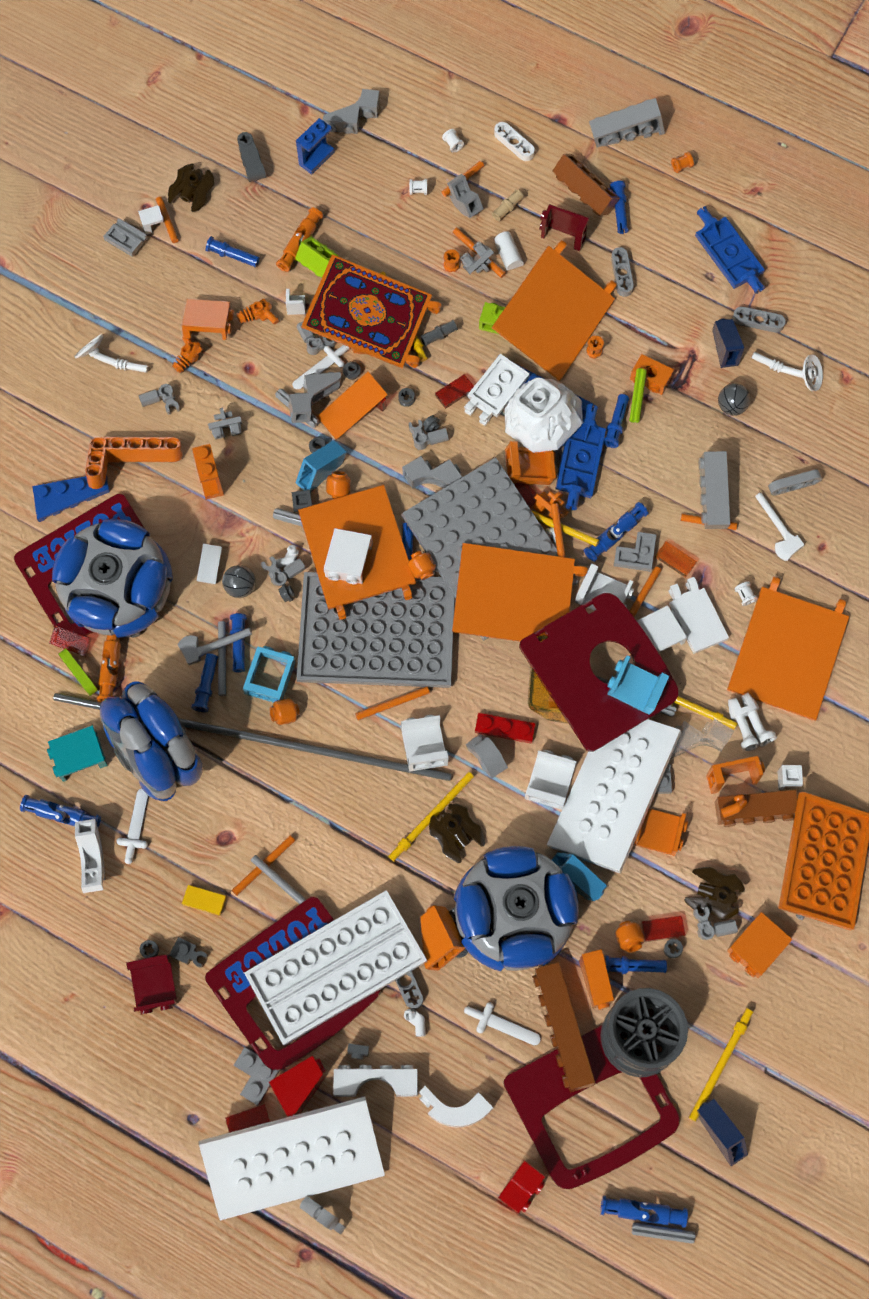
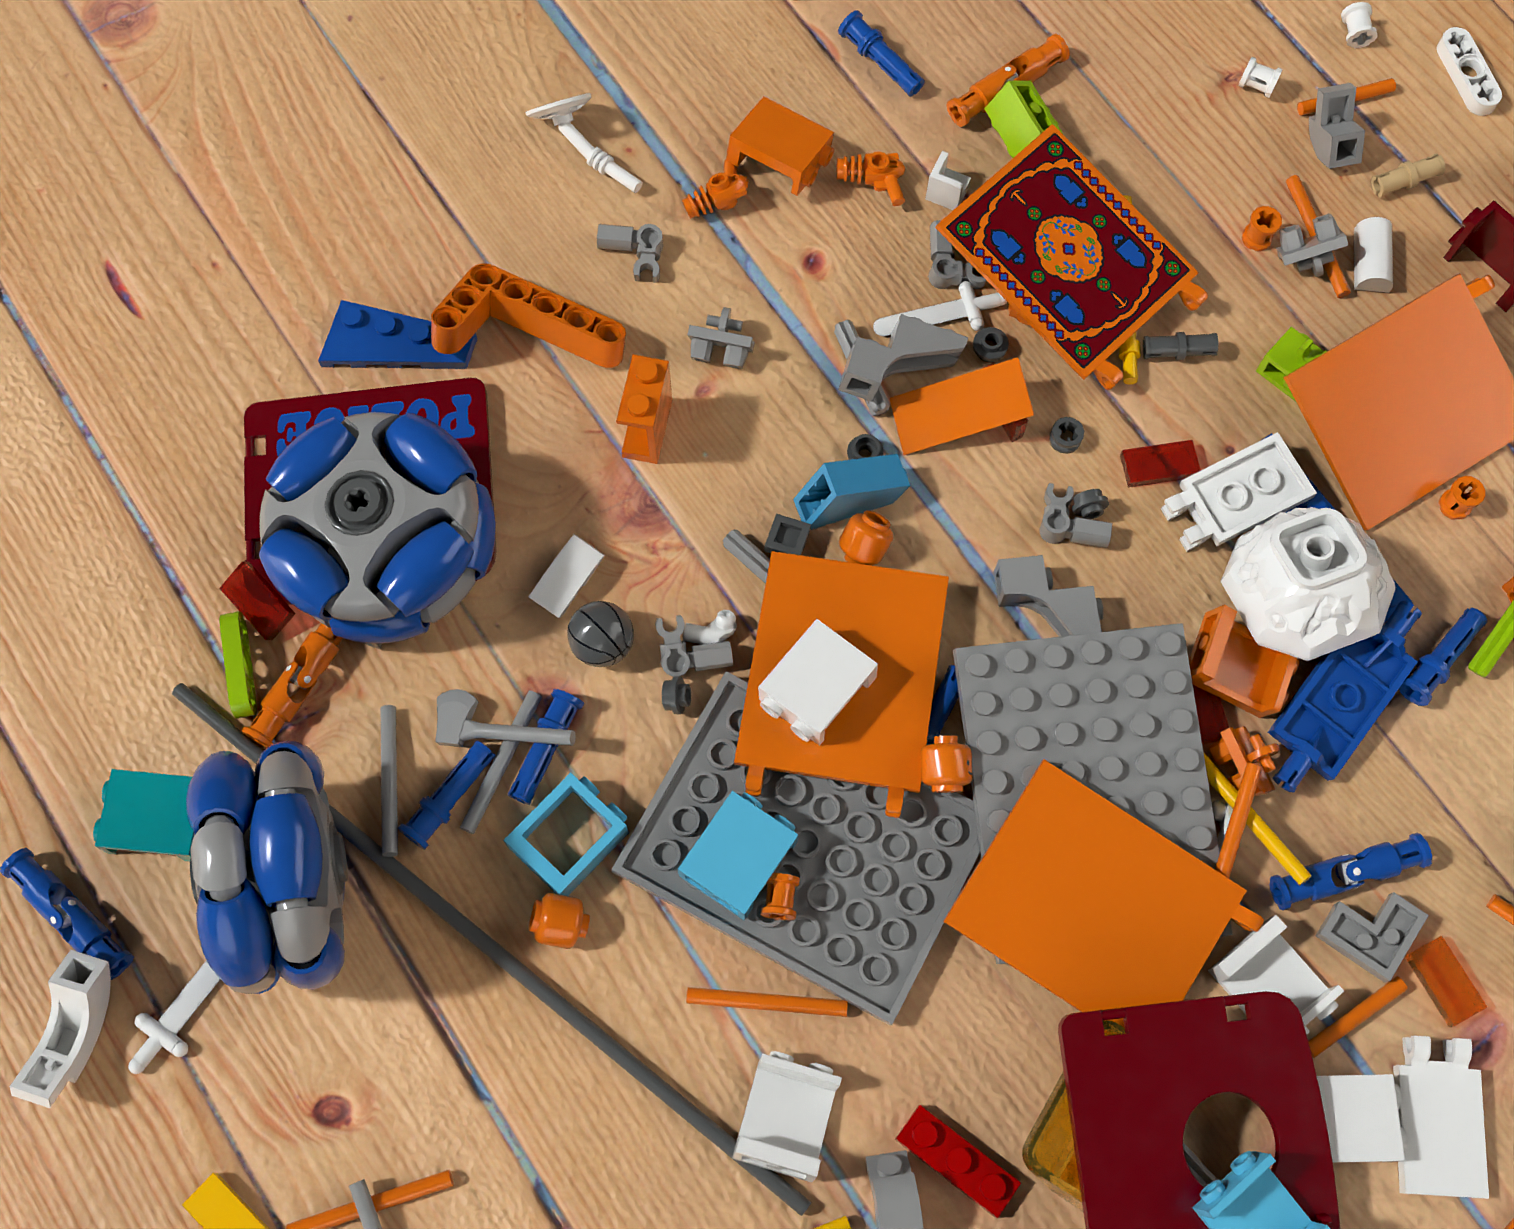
camera: 25 degrees right, 0 degrees up
(175, 689) = (389, 781): none -> light grey bar
(349, 645) = (738, 853): none -> medium azure panel
(376, 654) = (780, 897): none -> orange bush

